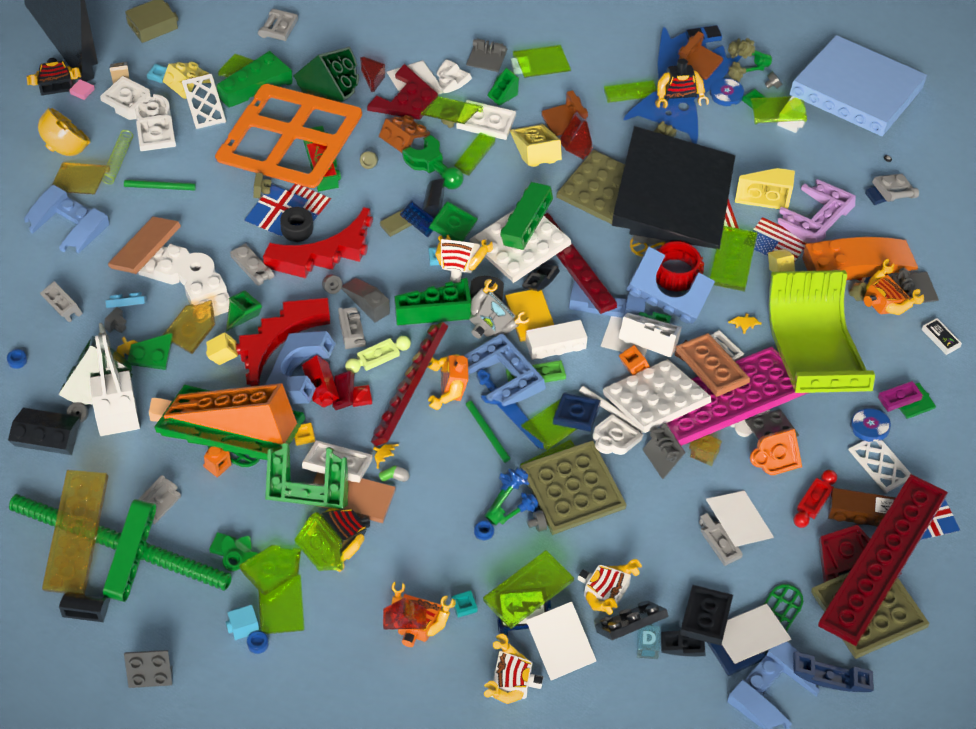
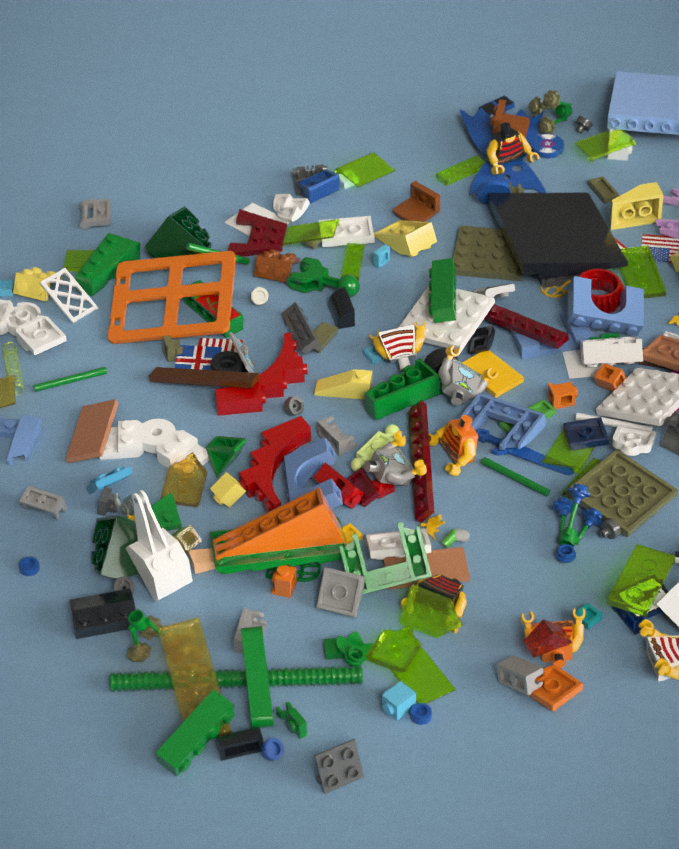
camera: 20 degrees left, 10 degrees down
(46, 584) = (195, 733): none -> green brick
(55, 456) = (148, 628): none -> plant
(107, 625) = (272, 749): none -> blue tile
(141, 607) = (295, 722): none -> green plate
(155, 384) = (187, 537): none -> clear yellow brick
(251, 264) = (205, 416): light grey plate -> none
(256, 491) = (340, 591): none -> light grey tile
(268, 227) = (204, 377): none -> reddish brown tile
(316, 218) = (242, 350): none -> light grey door
(363, 640) = (519, 674): none -> light grey hinge
(365, 111) = (200, 249): none -> green bar
(368, 298) = (341, 406): dark grey slope -> none
(373, 72) = (214, 224): clear red slope -> none
(378, 378) = (392, 466): none -> light grey torso
(384, 207) = (301, 329): none -> dark grey hinge
(388, 663) = (556, 688): none -> orange plate
(390, 279) = (345, 385): none -> light yellow slope
(418, 218) = (340, 328): clear blue tile -> none
(453, 222) = (371, 320): green plate -> none
(487, 64) = (319, 185): none -> blue slope
(501, 157) = (381, 256): none -> medium azure tile
(504, 87) = (345, 199): green slope -> none
(556, 339) = (529, 383): white brick -> none
(577, 137) = (443, 215): clear red slope -> none
(580, 362) = (562, 395): none -> orange brick
(582, 230) = (496, 290): none -> plate
(639, 121) = (491, 186): none -> blue tile
(752, 157) = (603, 189): none -> olive tile
(753, 94) = (570, 144): green tile -> none

